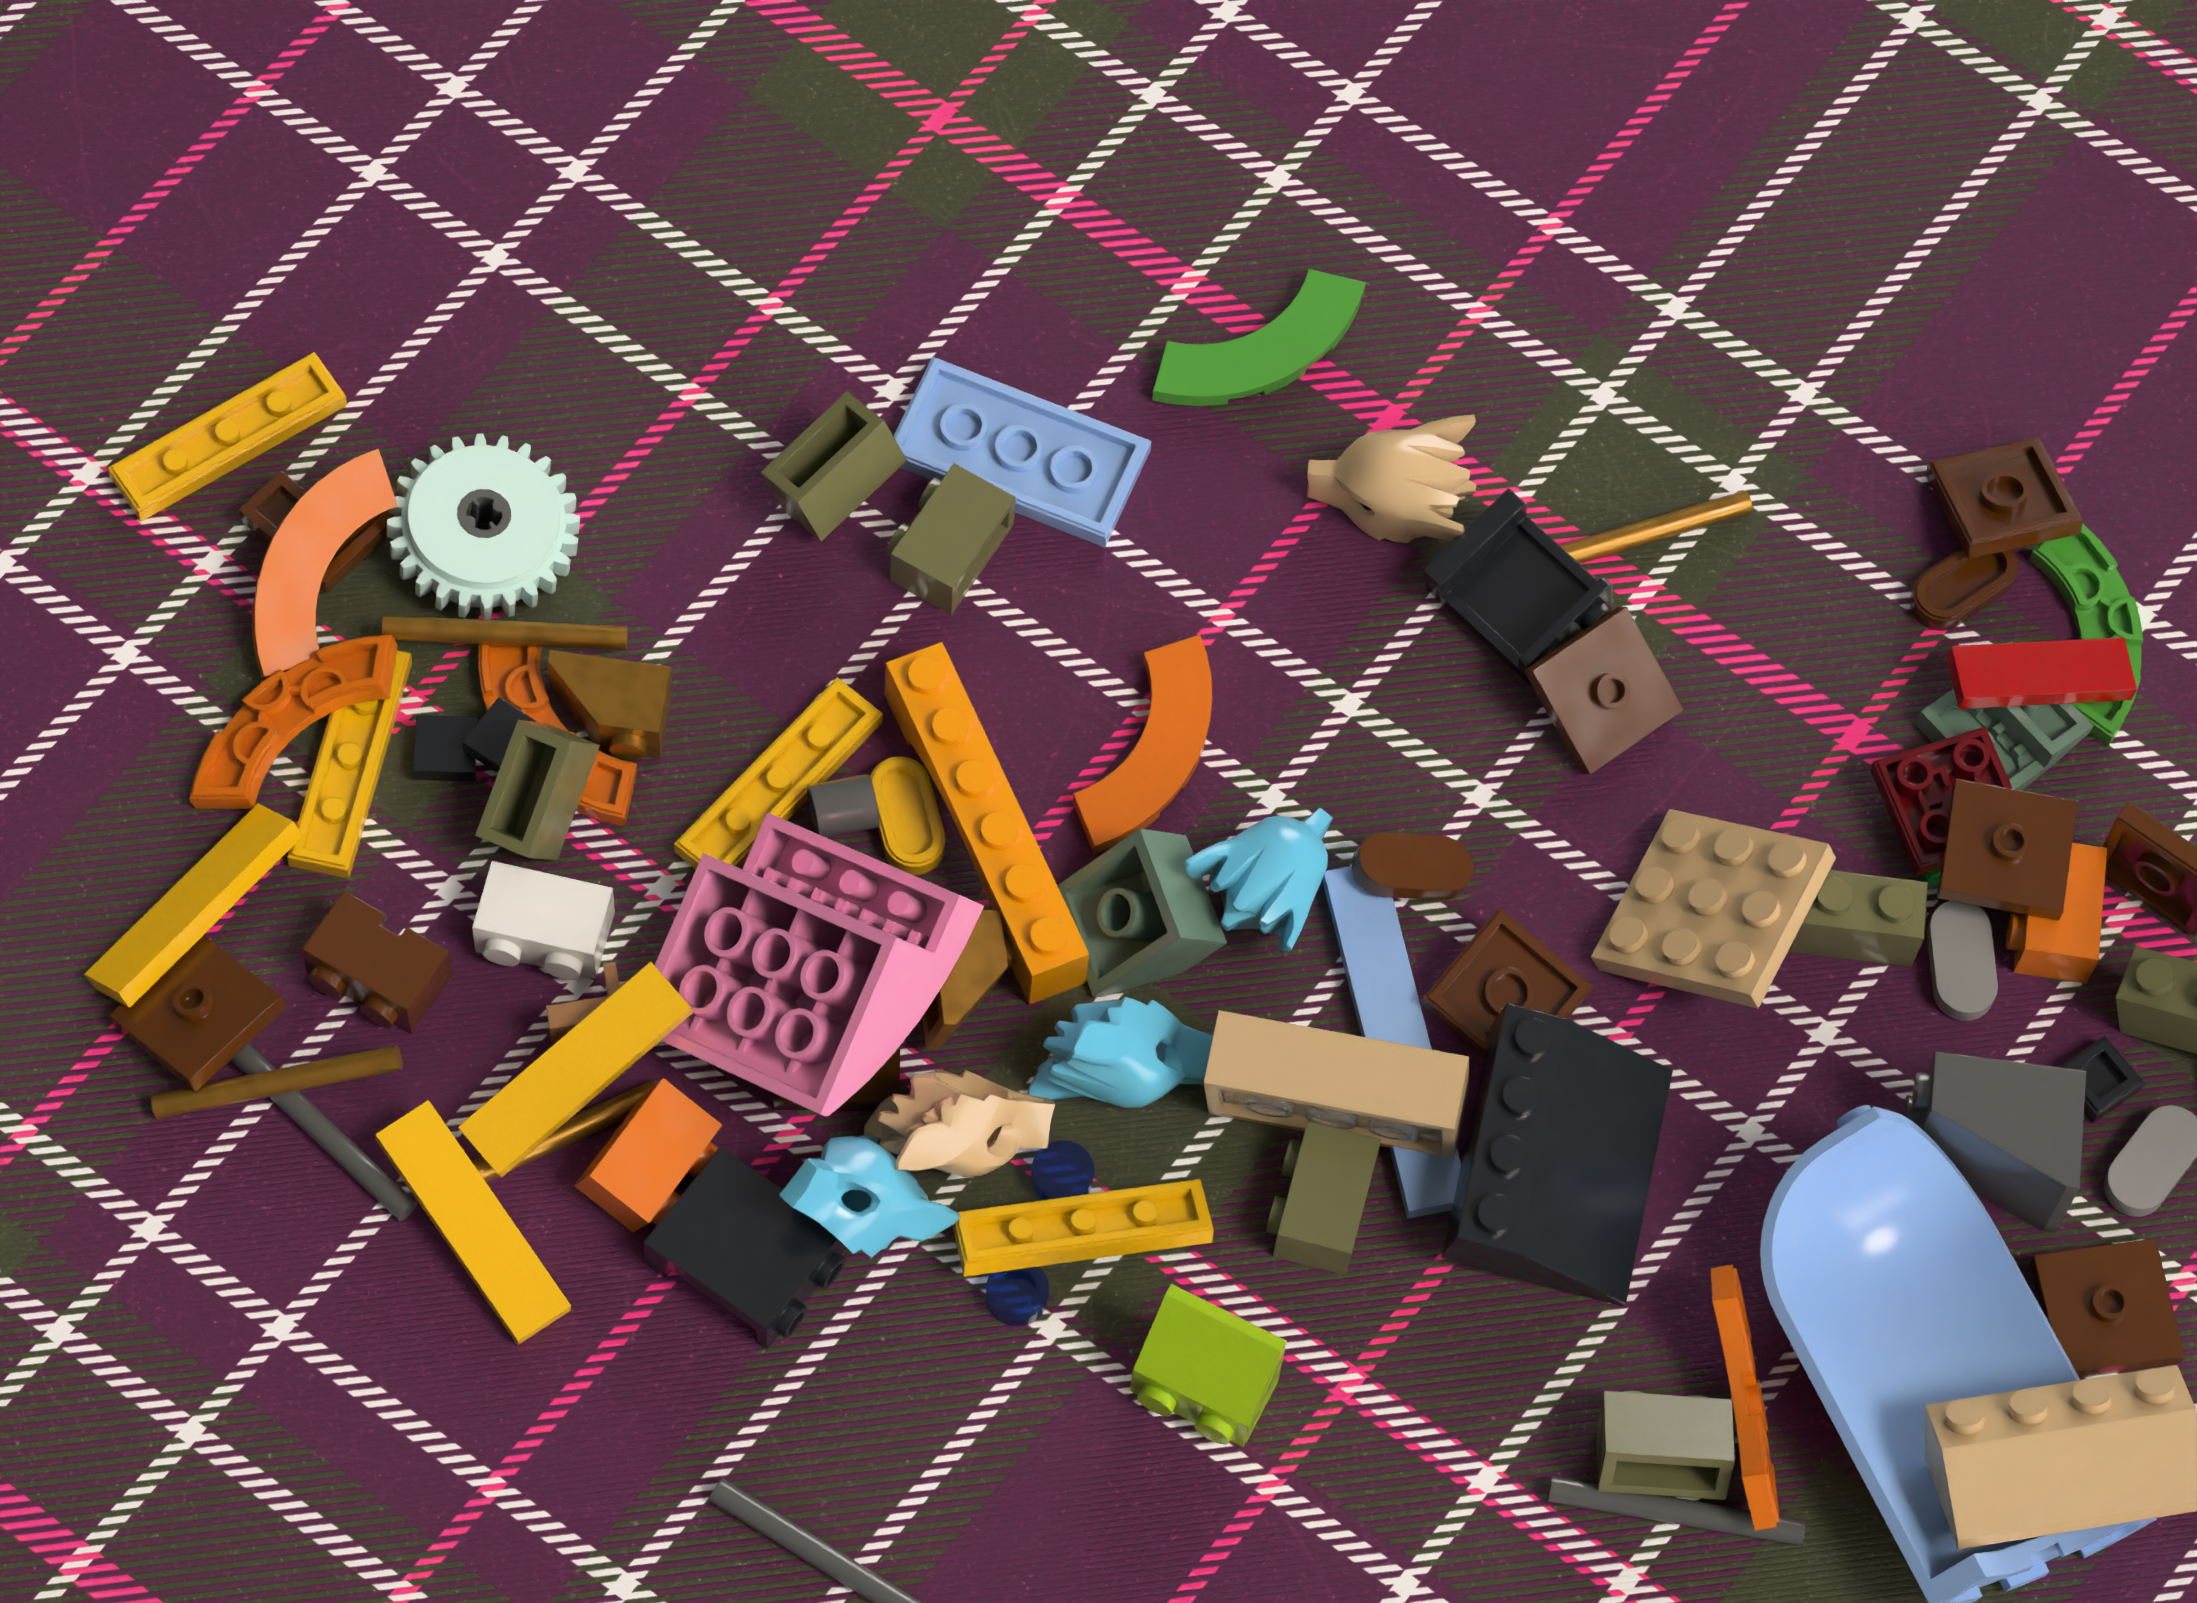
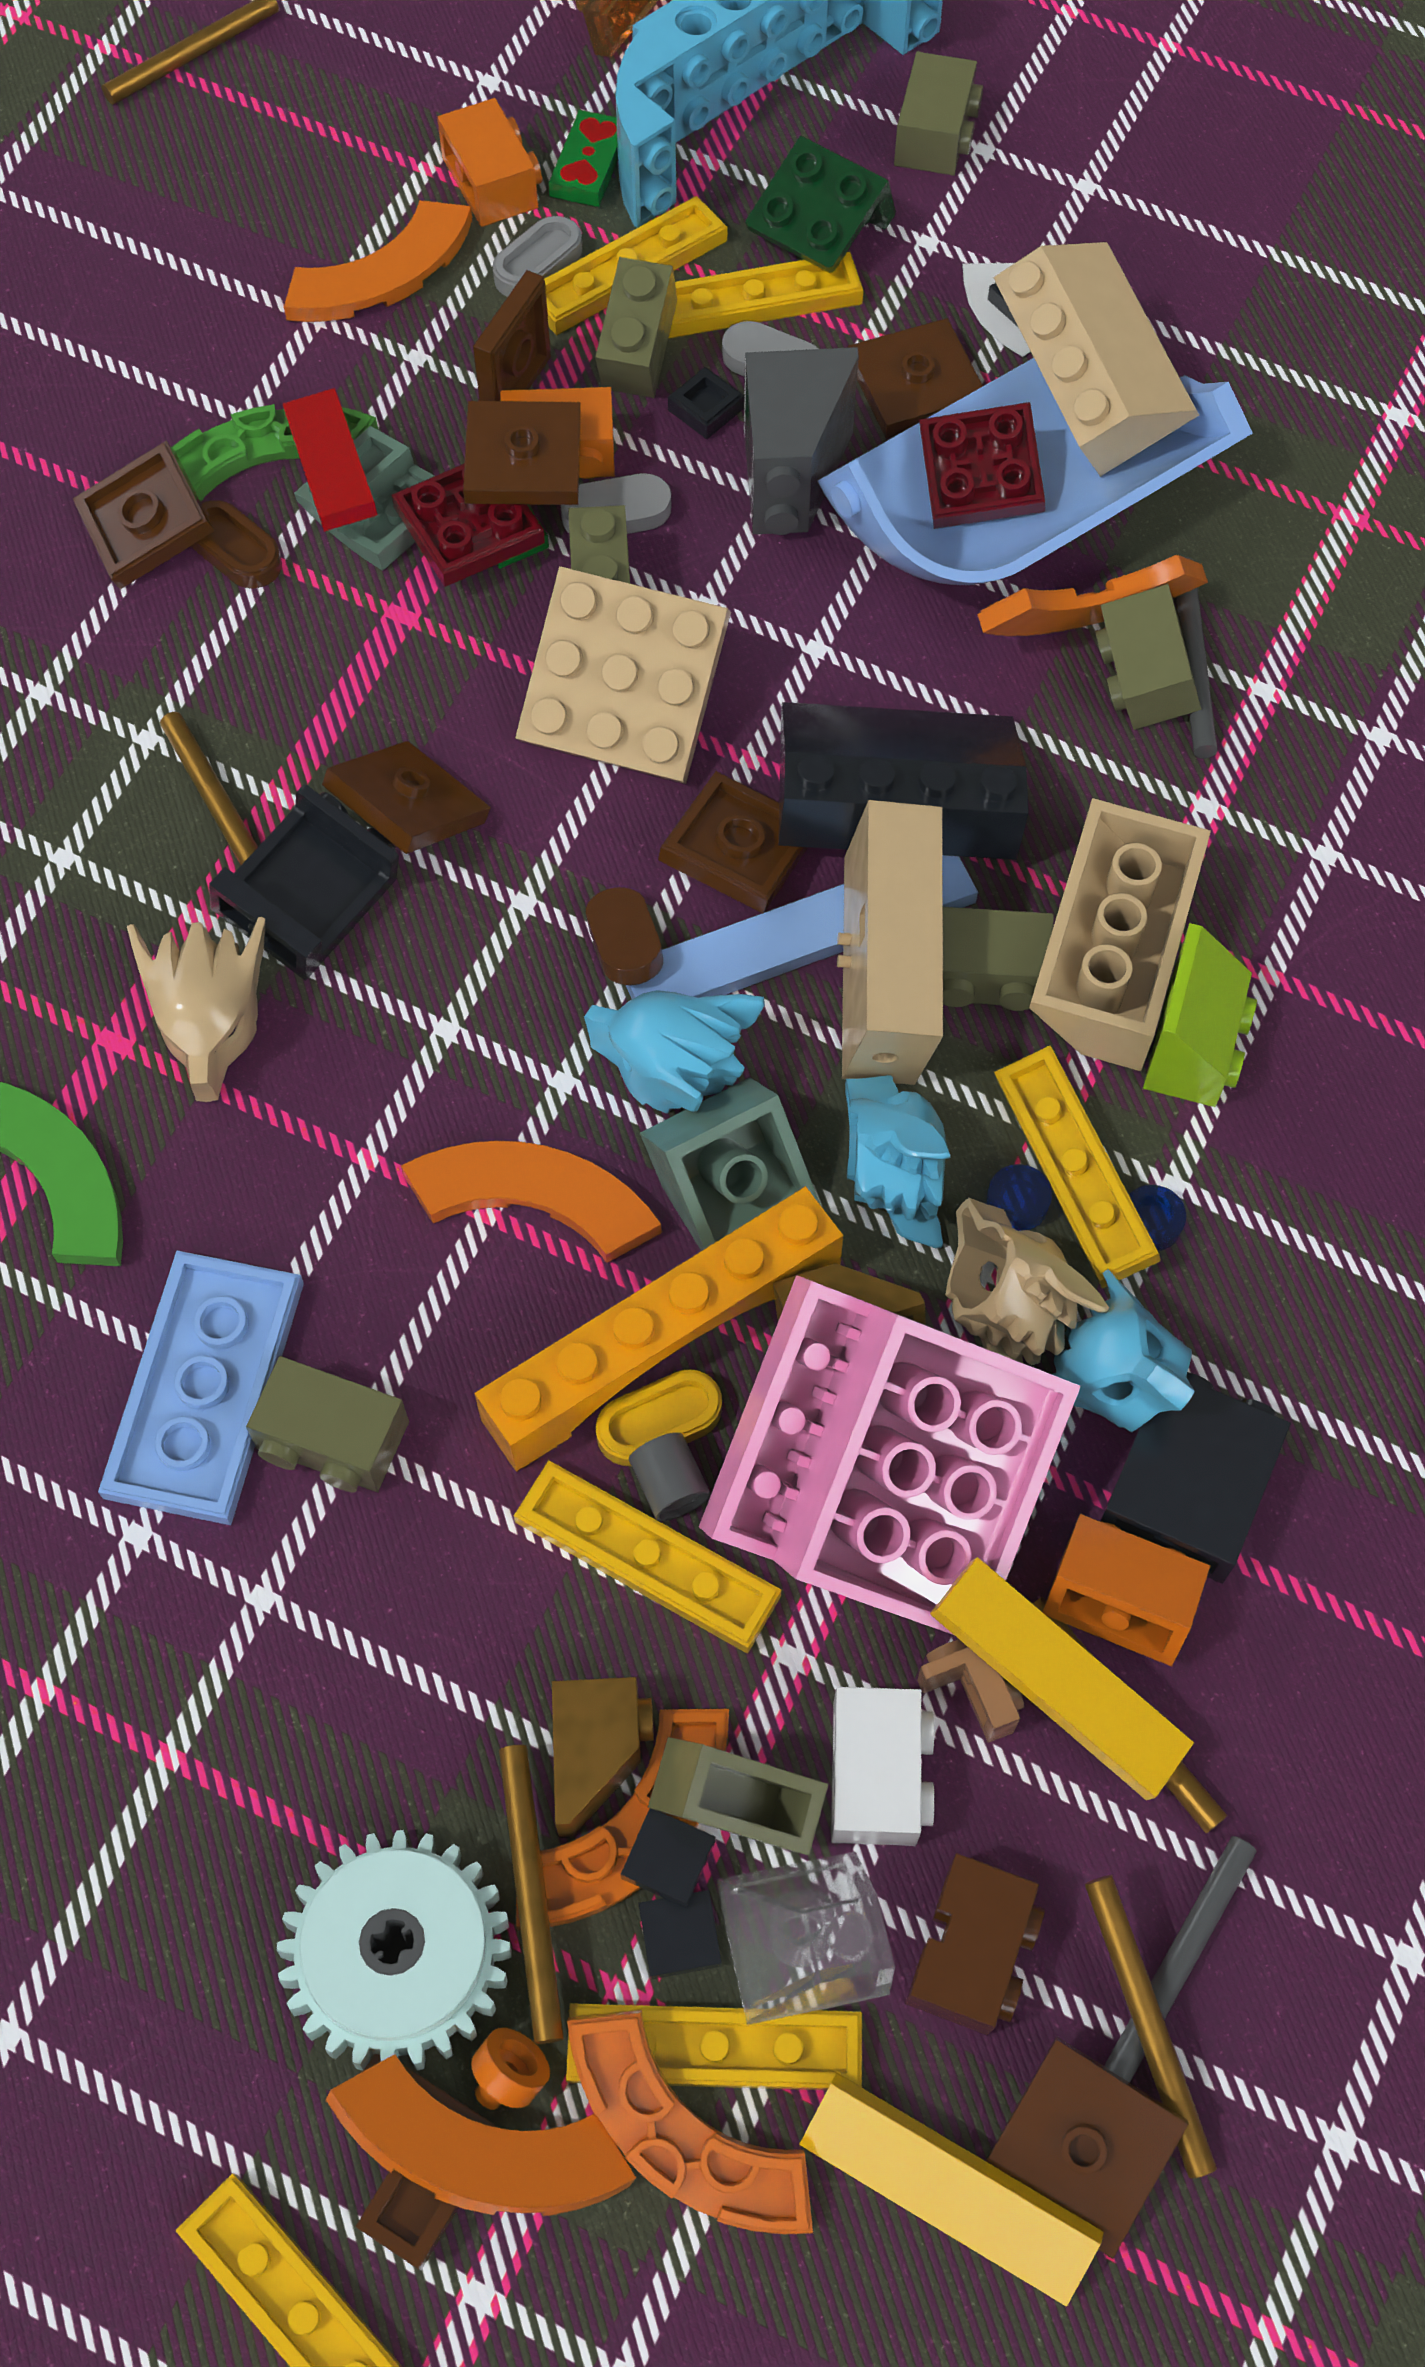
camera: 95 degrees left, 0 degrees up
(368, 596) = (509, 2070): none -> orange tile
(419, 838) = (806, 1937): none -> clear slope
(473, 1222) = (1245, 1766): yellow tile -> none
(834, 466) = (264, 1557): olive brick -> none
(1347, 1320) = (1119, 932): none -> tan slope
(1948, 1329) = (982, 465): none -> dark red tile

